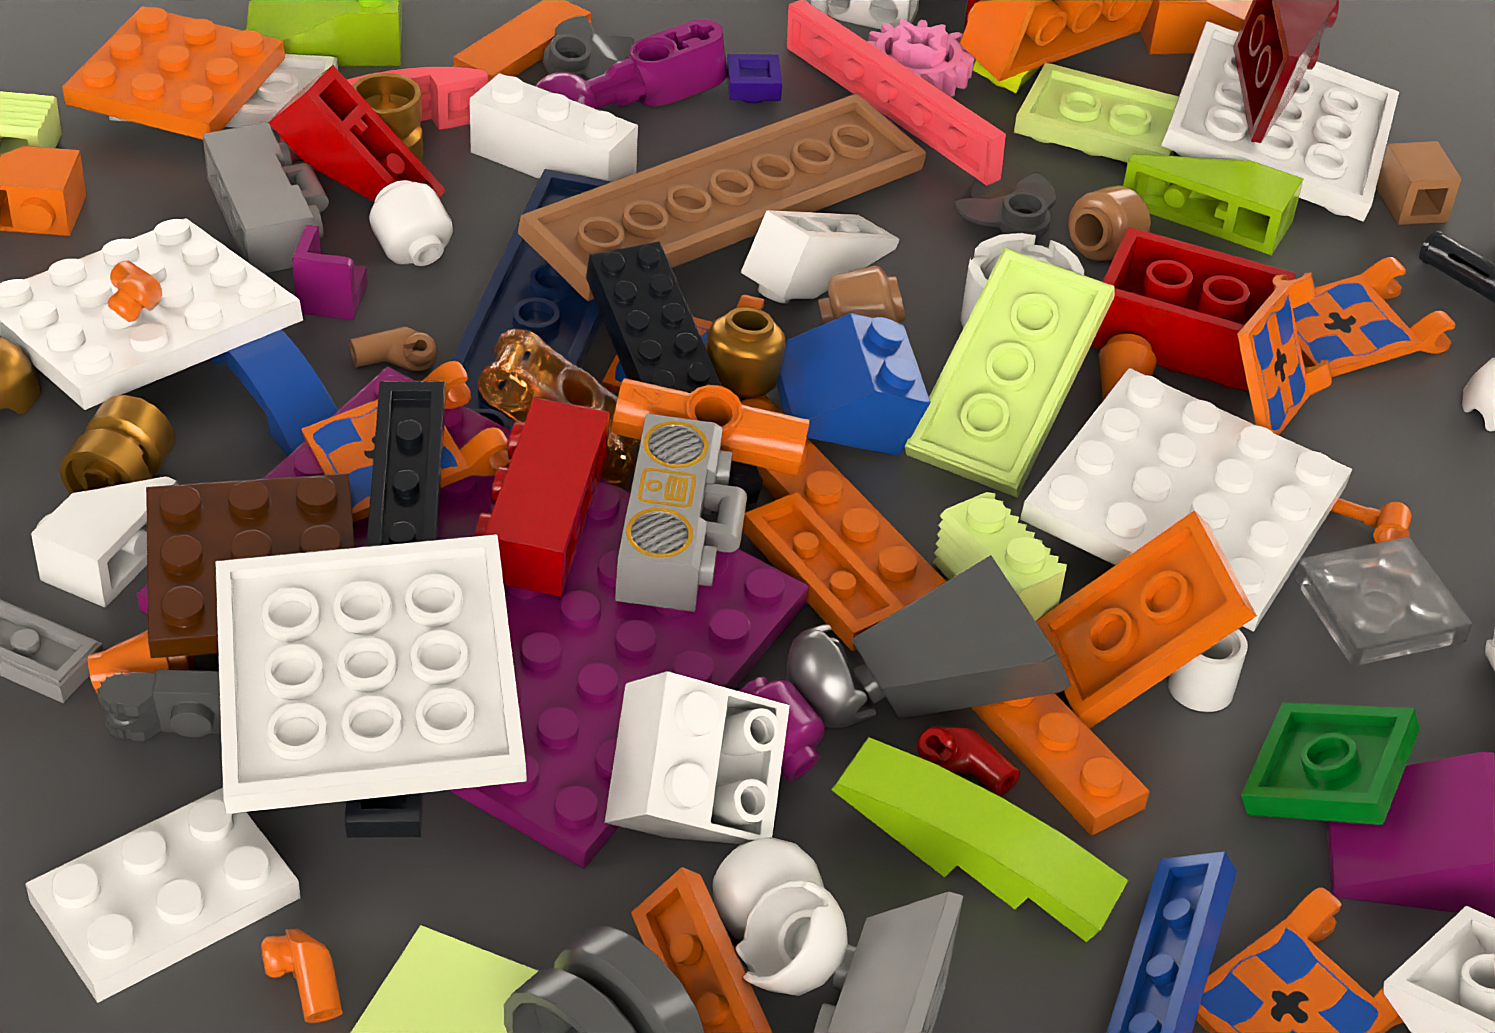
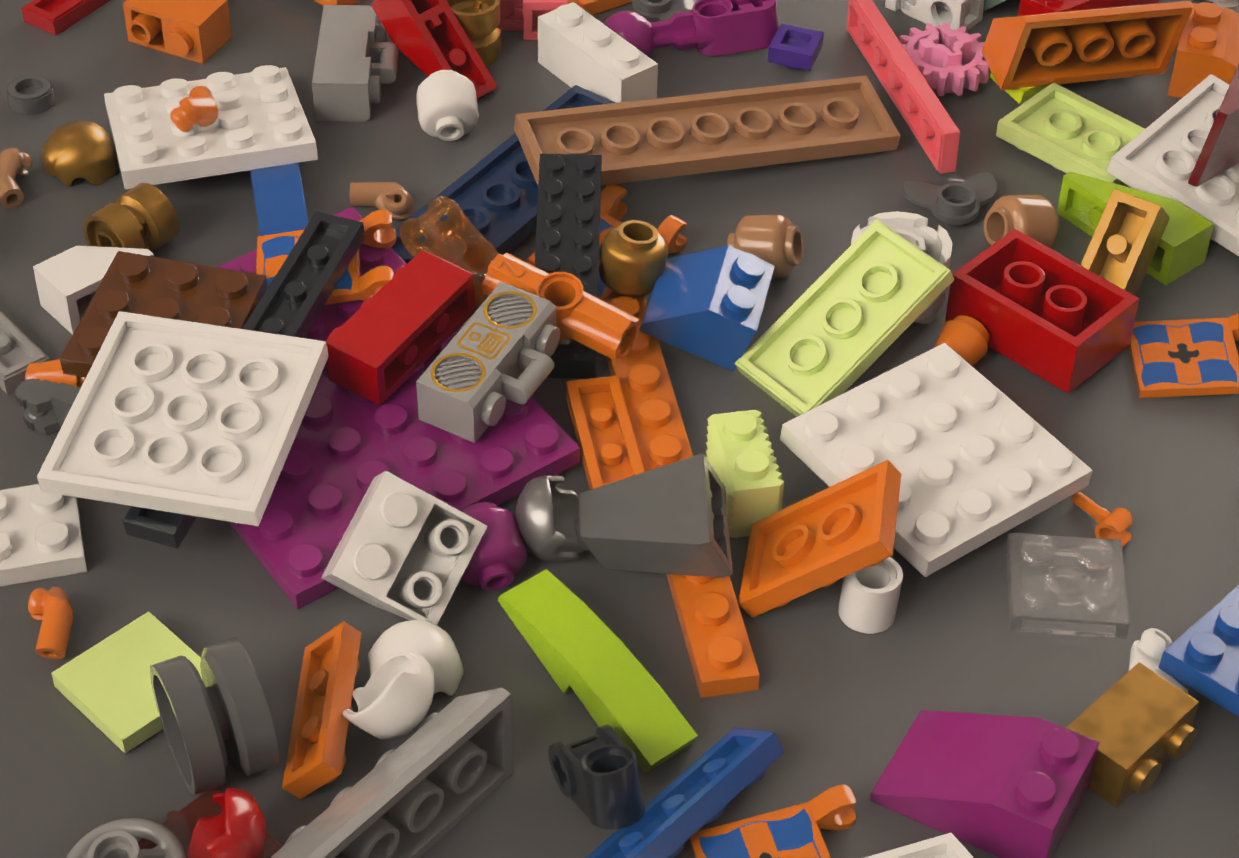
camera: 25 degrees right, 0 degrees up
(326, 282) = (358, 137): magenta panel -> none
(803, 250) = (739, 187): white slope -> none
(969, 754) = (630, 605): red arm -> none
(1064, 961) = (600, 778): none -> black piece
(1242, 210) = (1125, 240): none -> pearl gold brick
(1274, 359) = (1072, 365): orange flag -> none
(1331, 763) = (919, 694): green plate -> none

